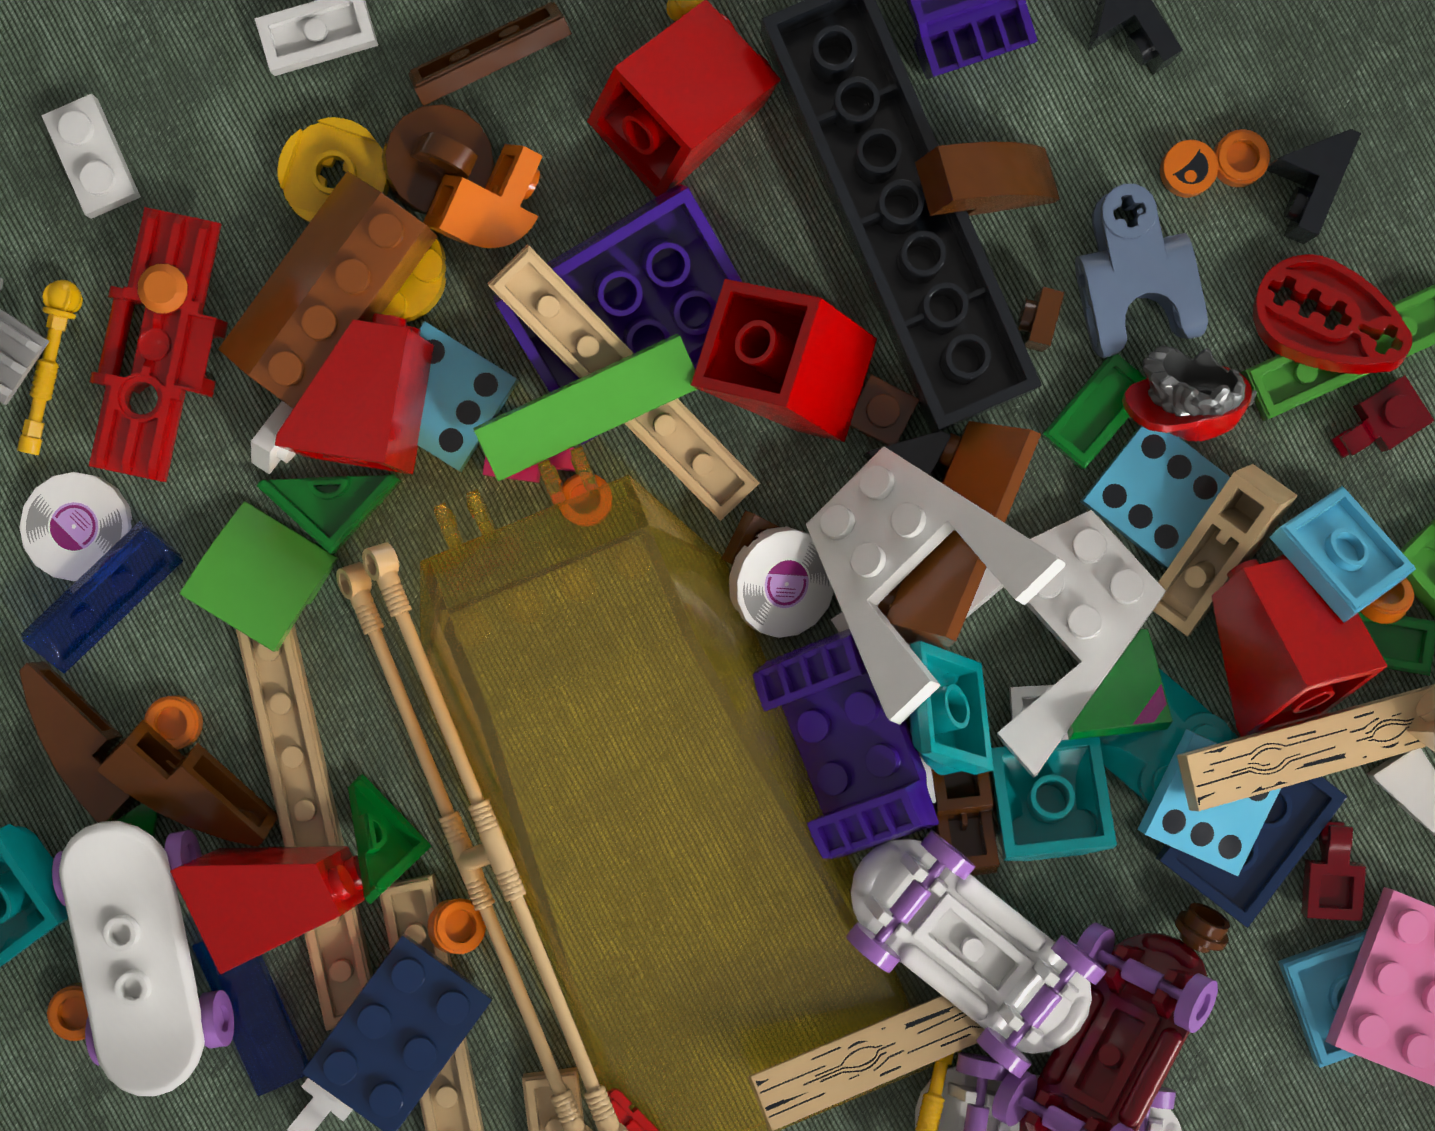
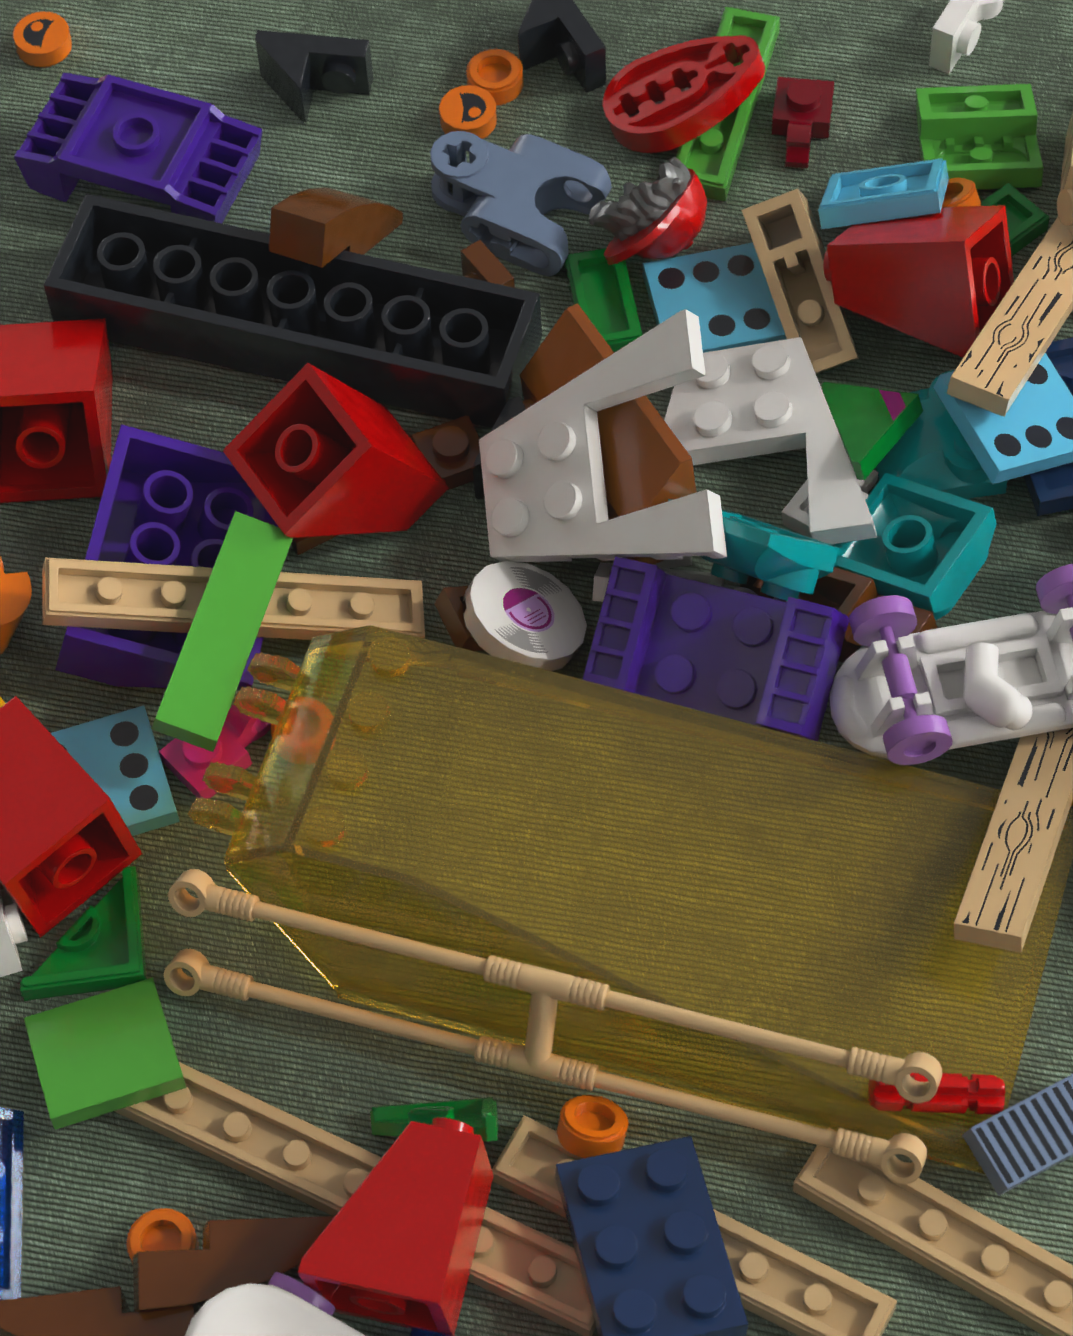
camera: 50 degrees left, 30 degrees down
(948, 964) = (990, 695): none -> white arm

